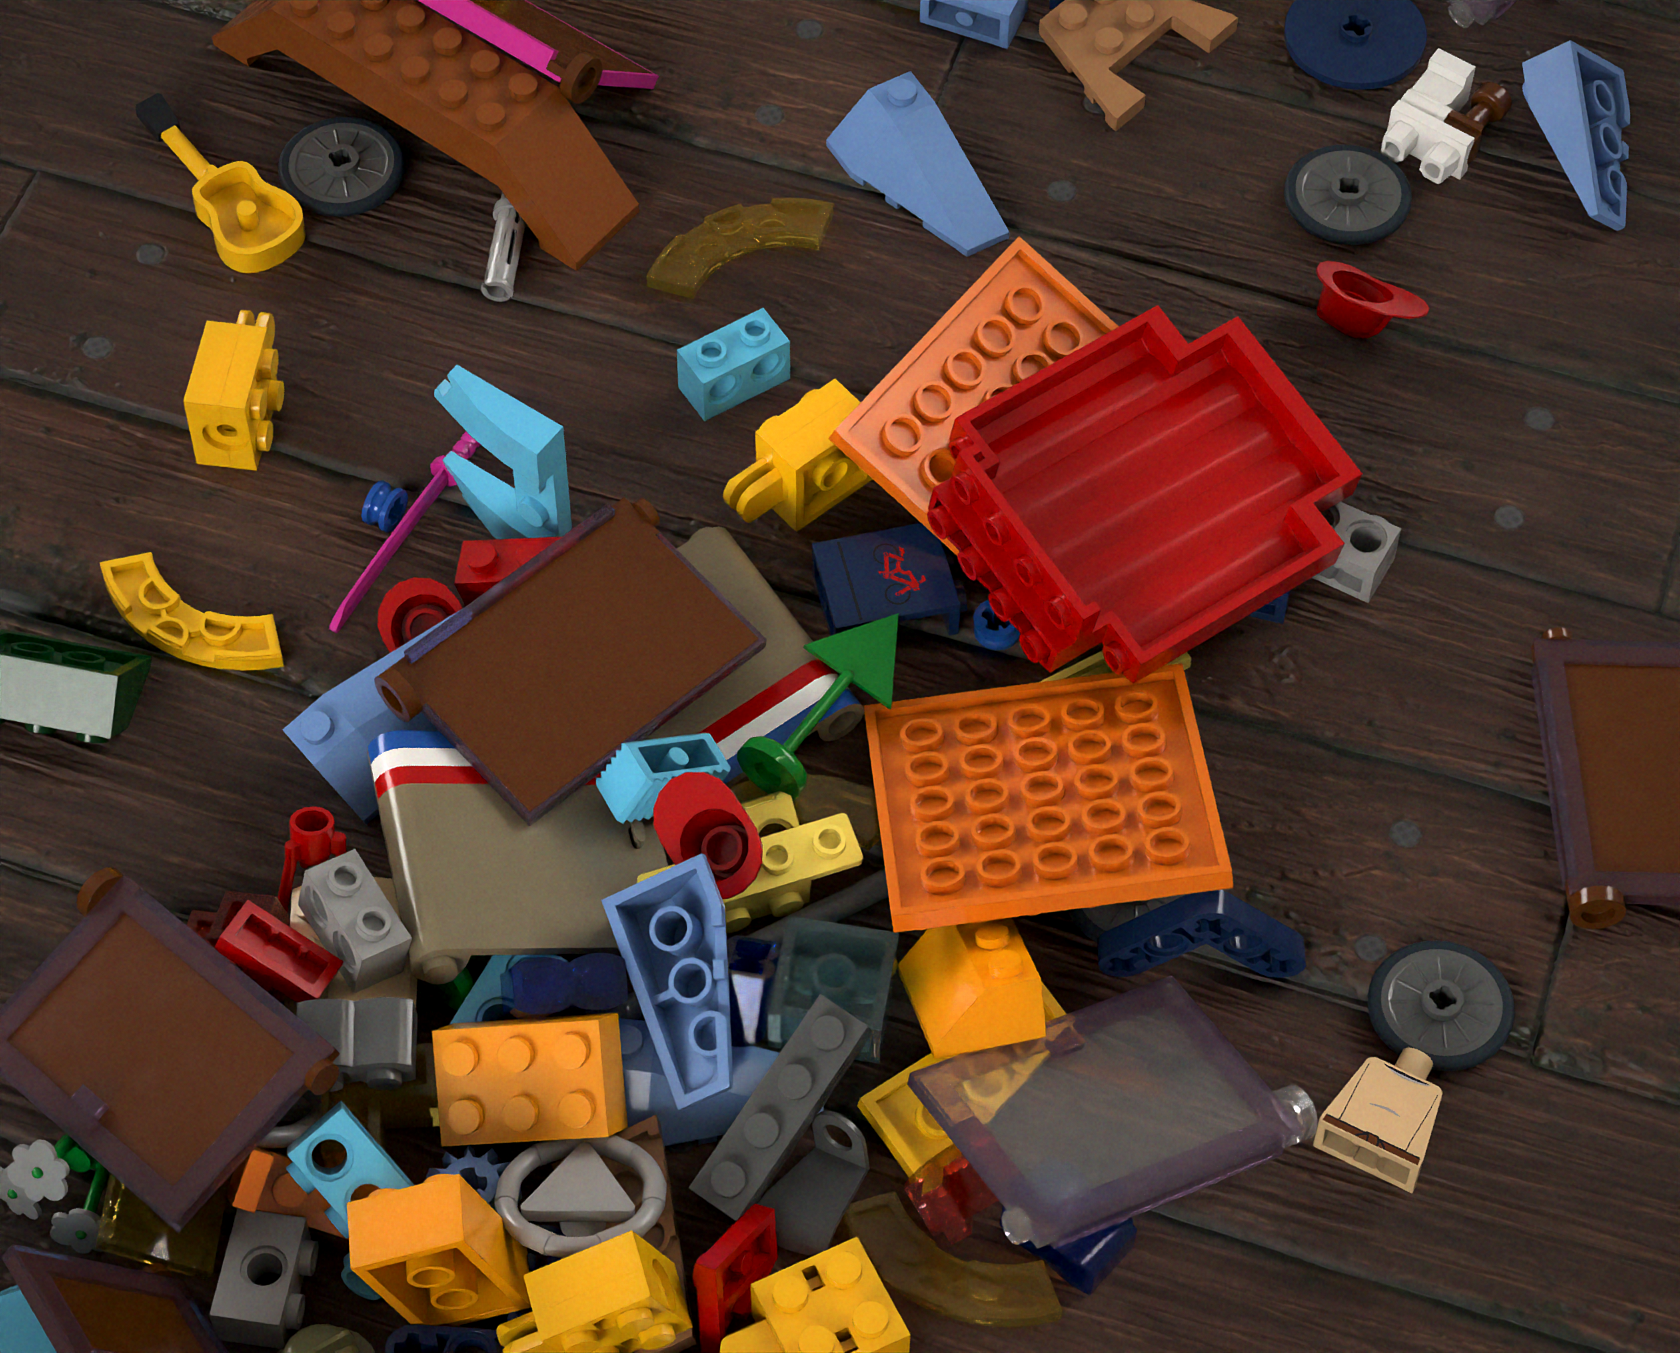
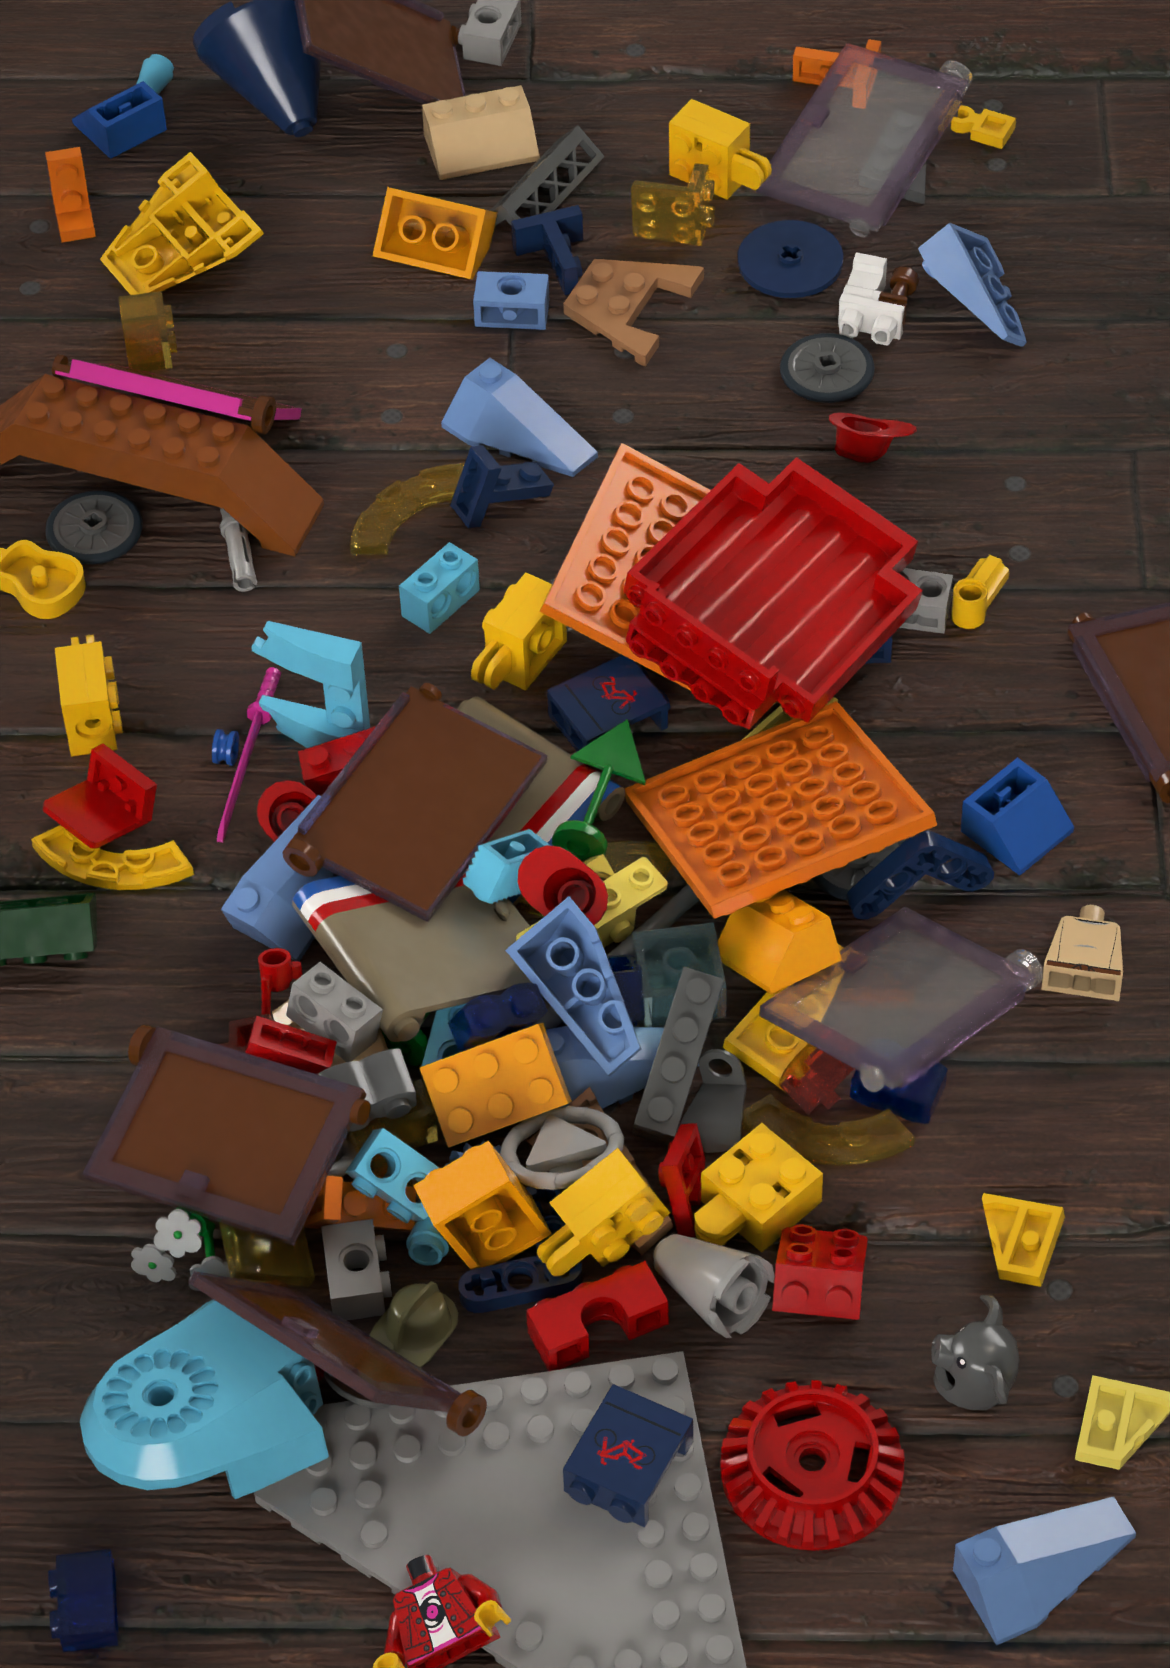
camera: 15 degrees left, 5 degrees down
(202, 542) = (106, 804): none -> red bracket
(844, 240) = (487, 482): none -> dark blue bracket
(993, 639) = (697, 723): blue bush -> none
(1362, 893) = (1016, 817): none -> blue slope
(1426, 560) = (977, 592): none -> yellow piece
(1473, 989) = (1070, 871): dark grey wheel -> none

